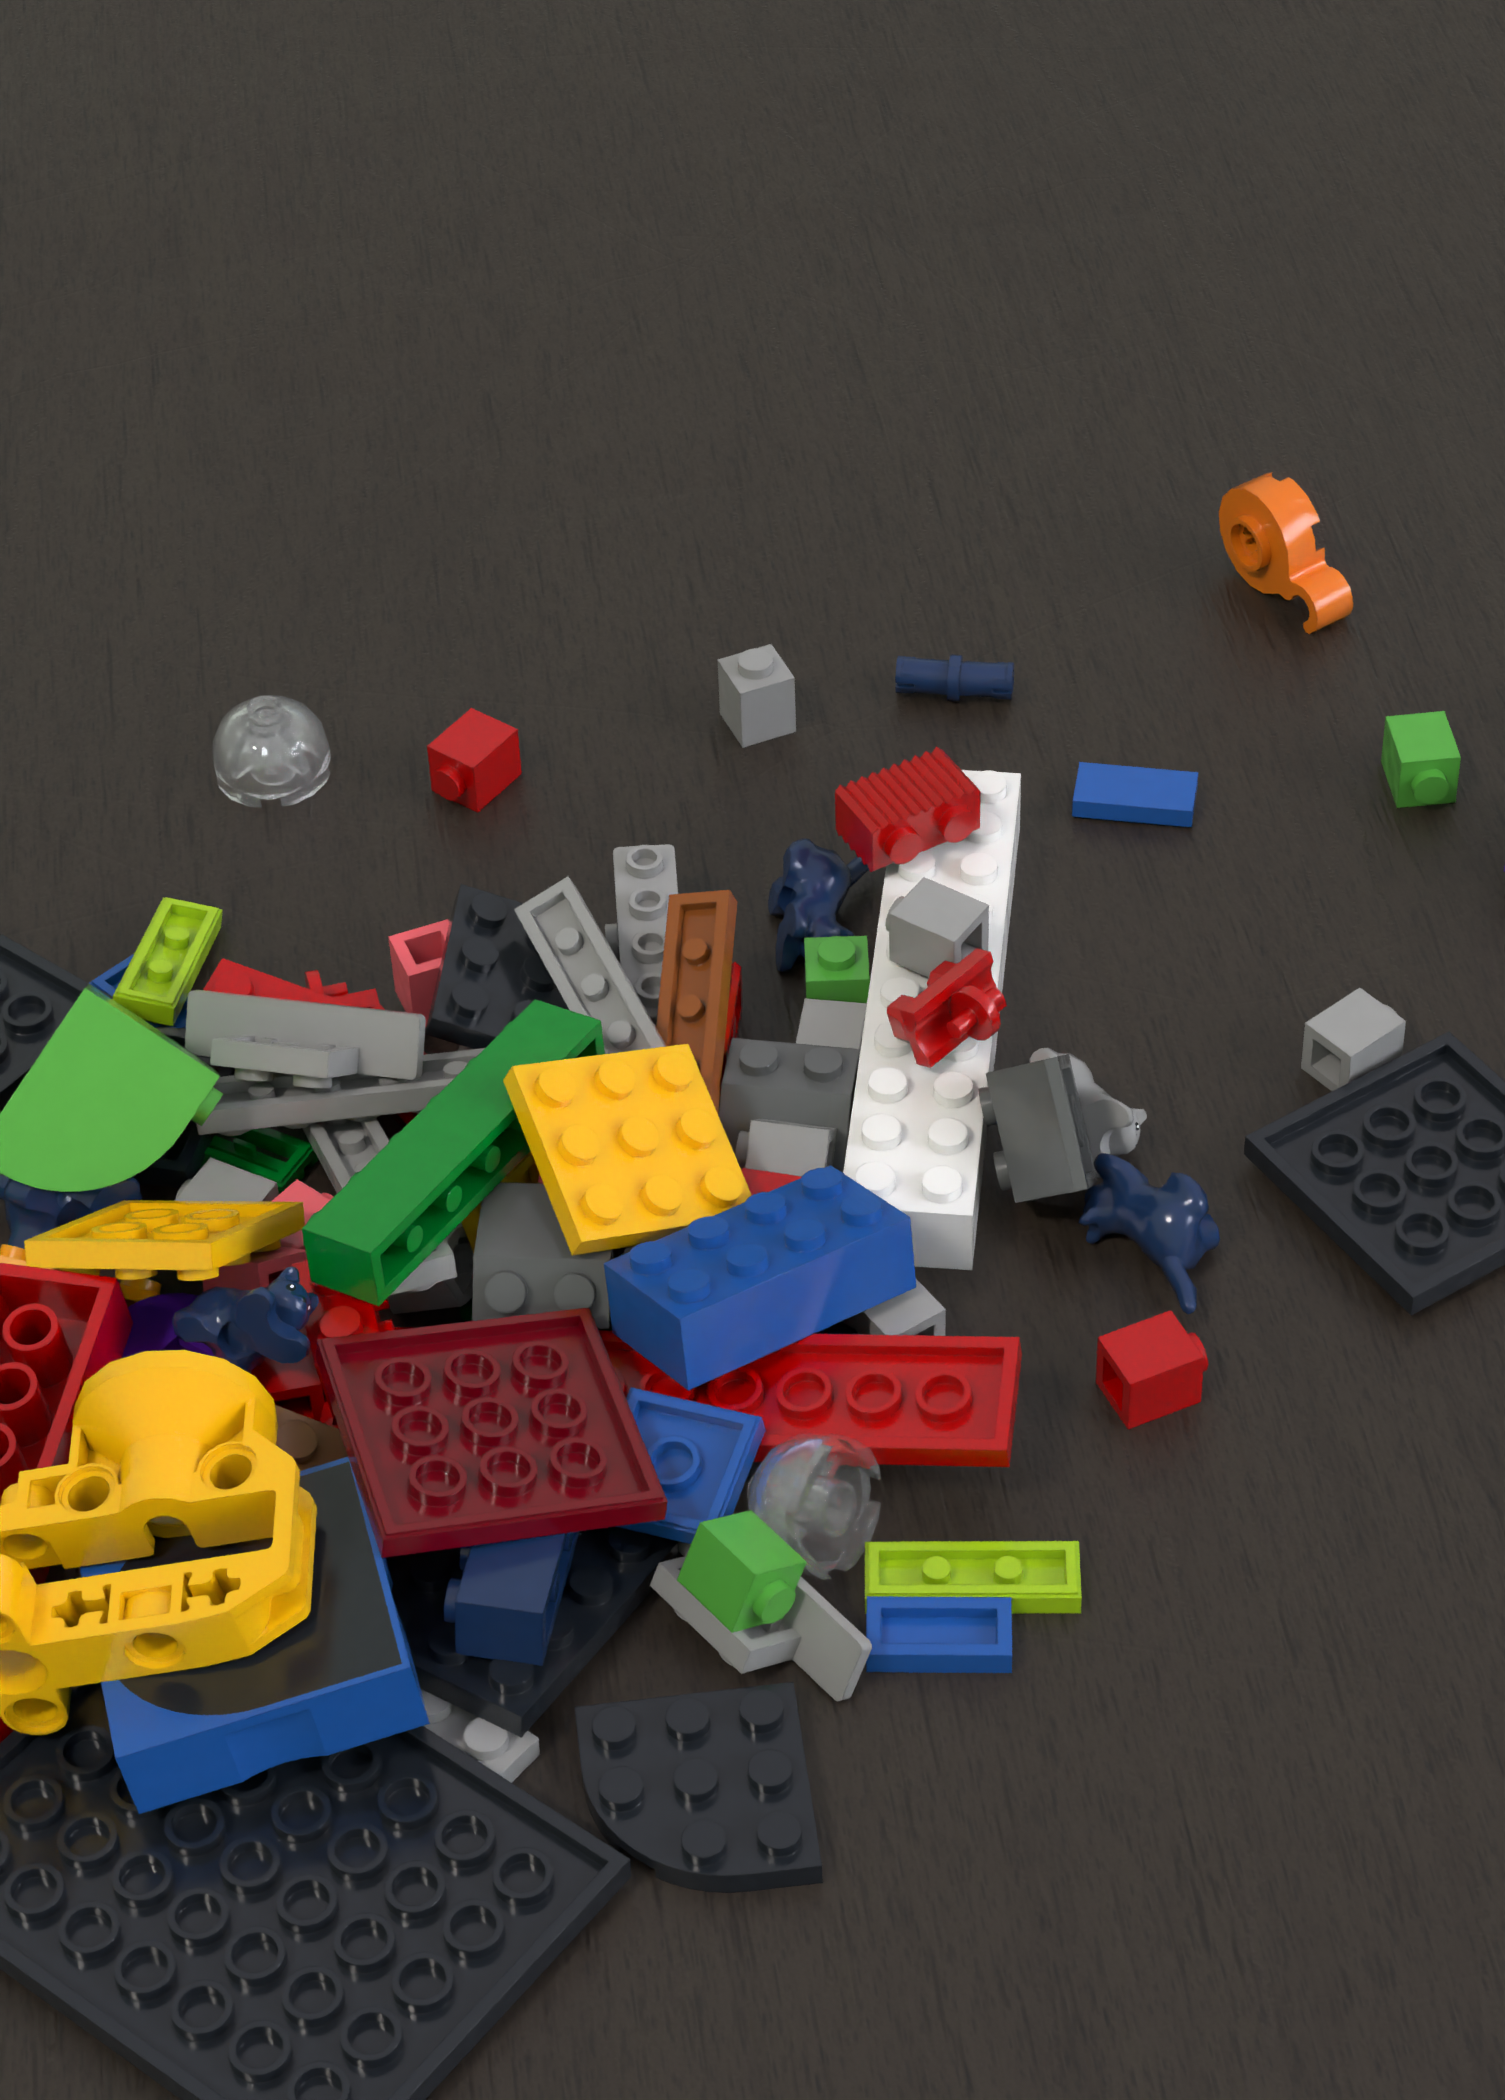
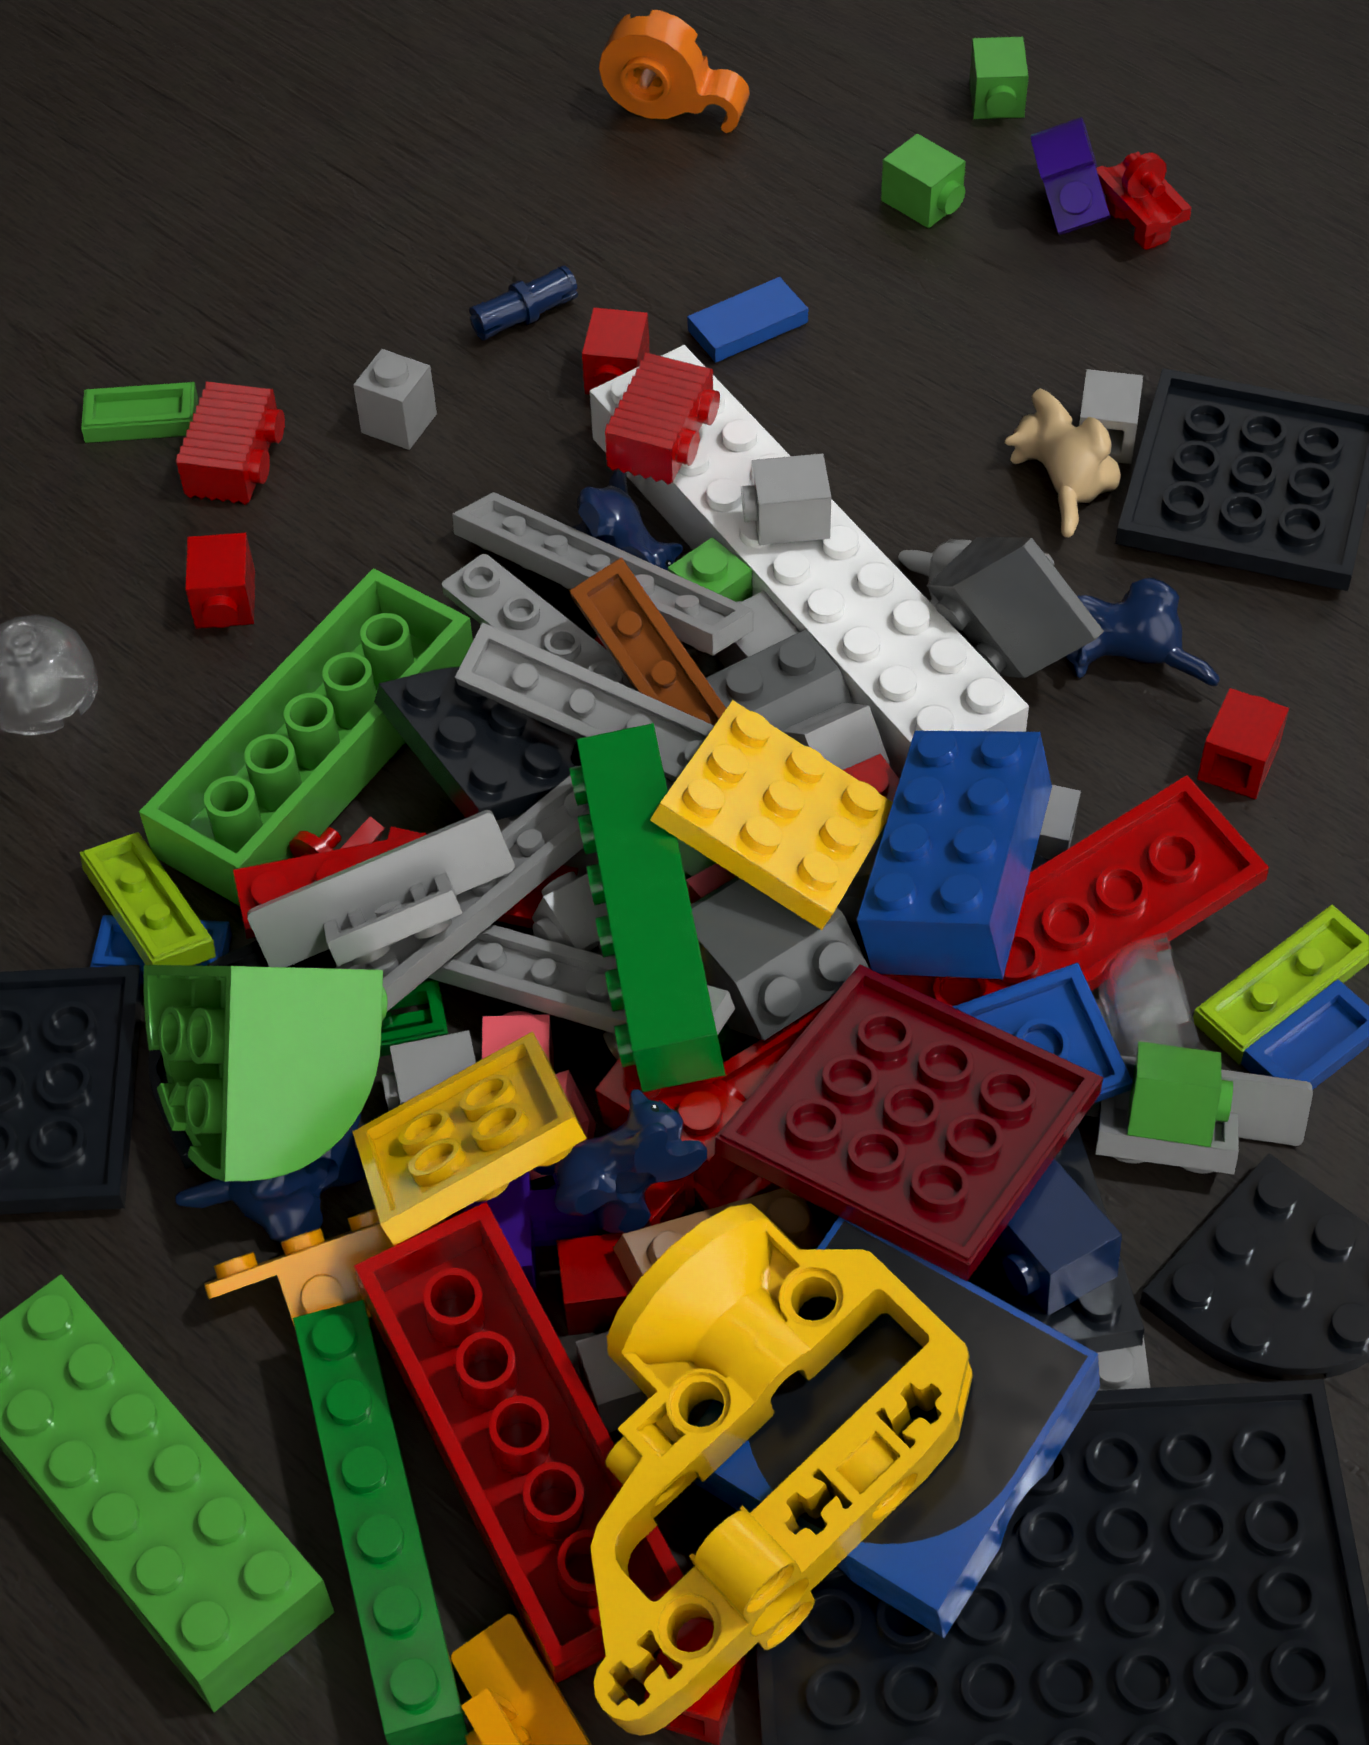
camera: 40 degrees left, 10 degrees up
(344, 905) = (302, 736): none -> bright green brick
(416, 965) = (390, 779): coral brick -> none
(563, 602) = (138, 412): none -> bright green tile
(595, 658) = (229, 442): none -> red brick
(765, 937) = (570, 557): none -> light grey plate
(955, 1006) = (871, 551): red hips -> none
(986, 743) = (613, 345): none -> red brick
(1270, 1061) = (1072, 455): none -> tan animal

